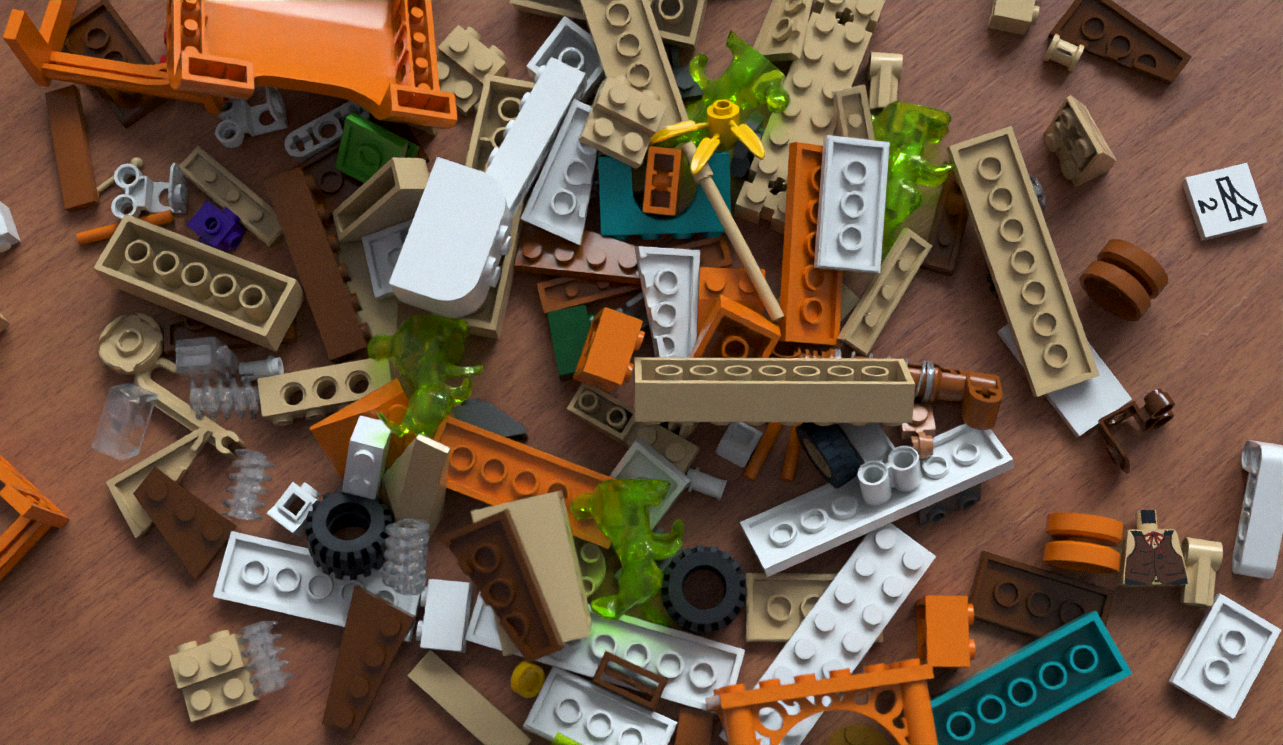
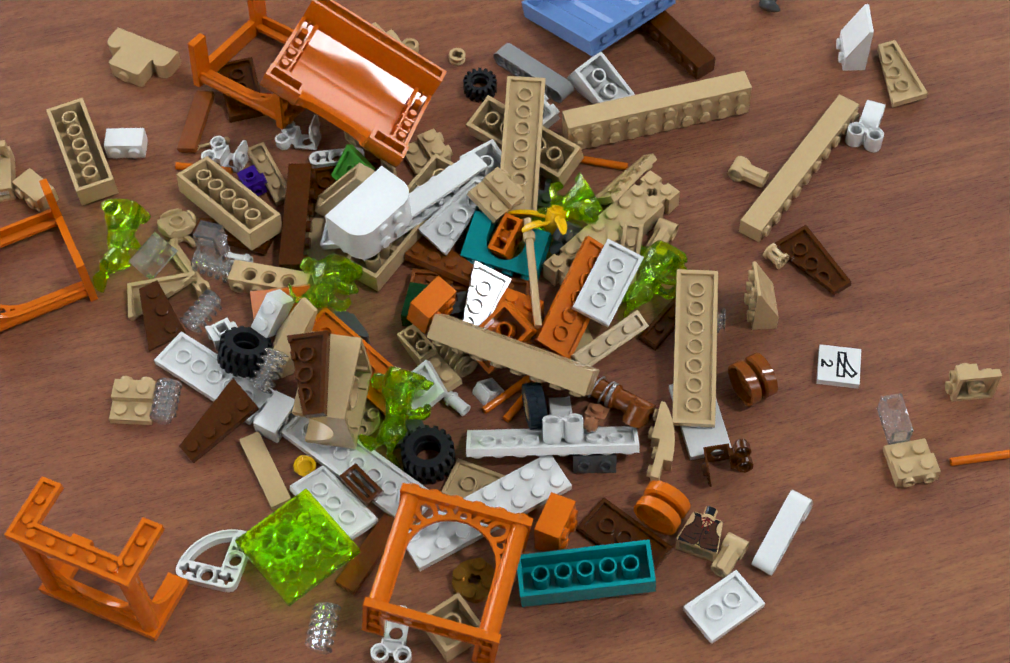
camera: 20 degrees right, 20 degrees down
(51, 393) = (122, 222): none -> clear neon green animal
(1029, 419) = (662, 442): none -> tan slope

